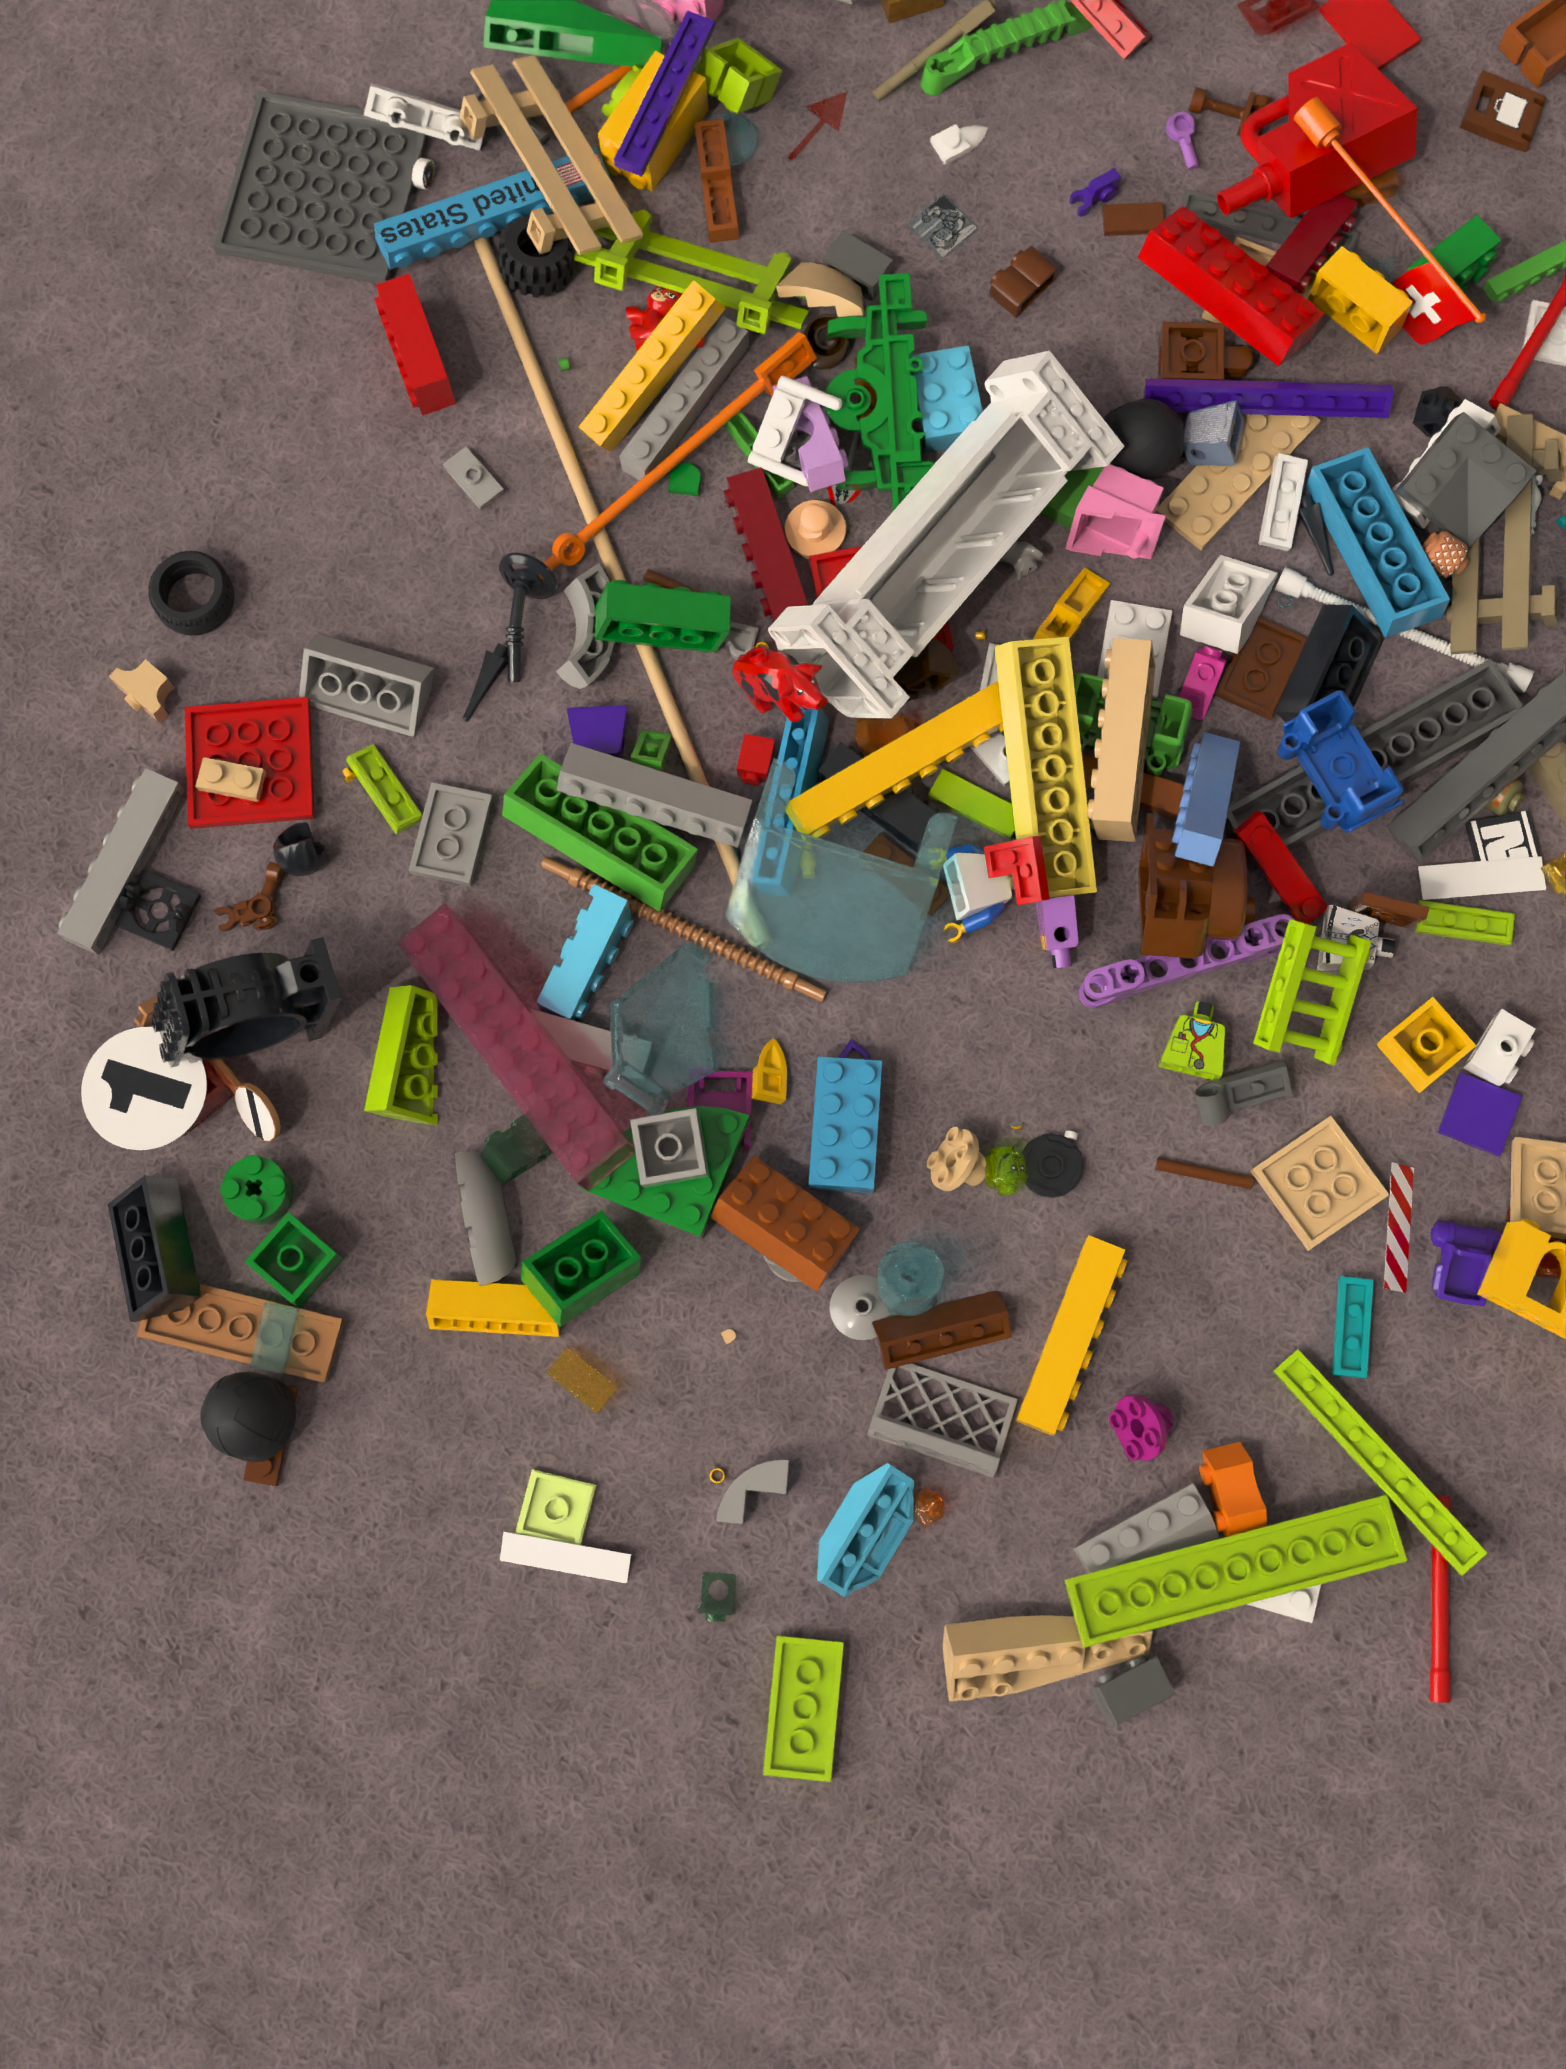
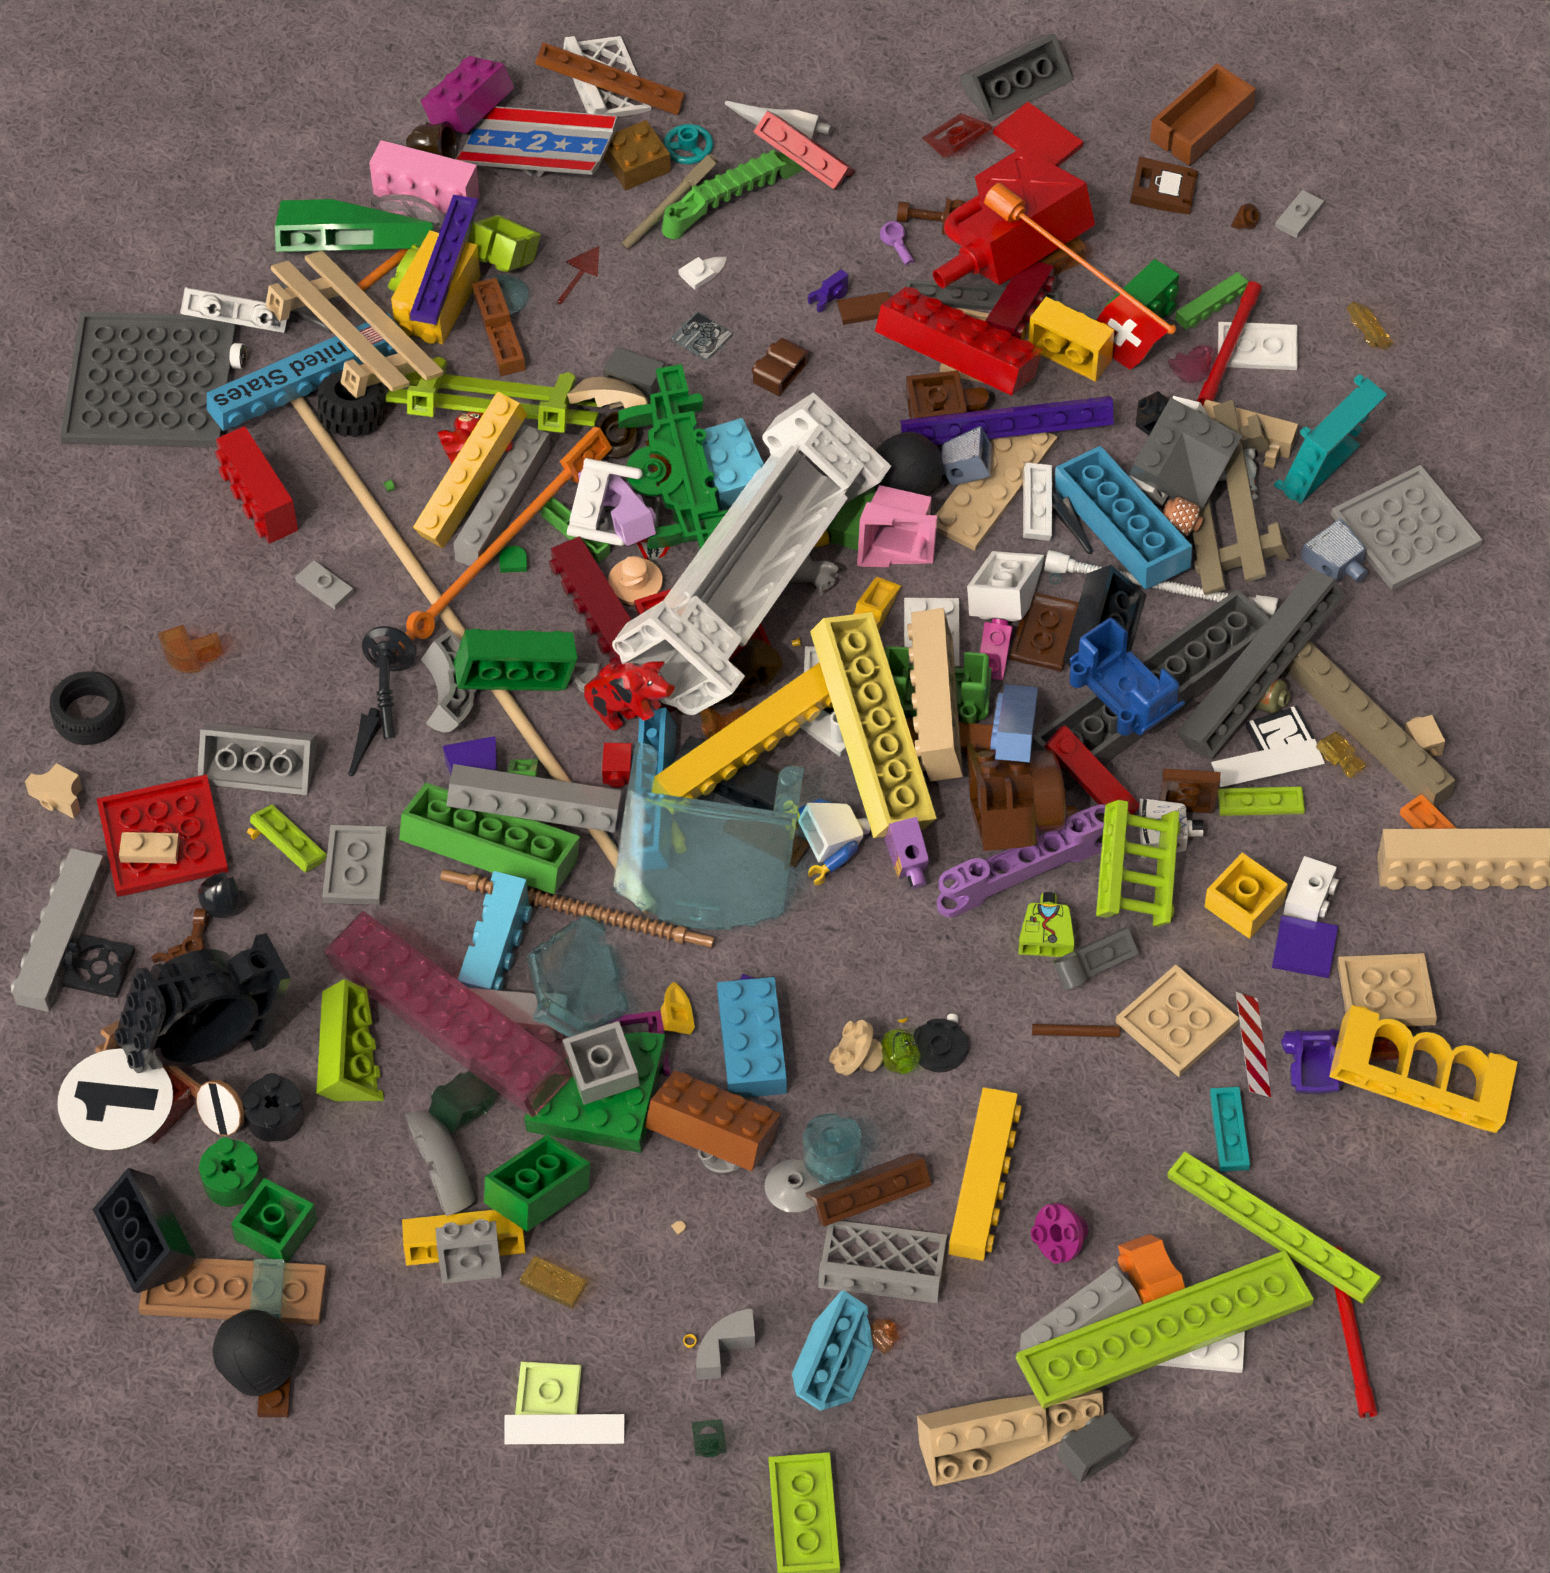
camera: 15 degrees left, 20 degrees down
(297, 1123) = (273, 1108): none -> black brick
(309, 543) = (186, 654): none -> clear orange brick
(493, 1335) = (468, 1251): none -> light grey plate
(973, 803) = (820, 772): lime tile -> none
(1026, 863) = (867, 796): plate -> none
(1493, 353) = (1193, 366): none -> clear pink hair

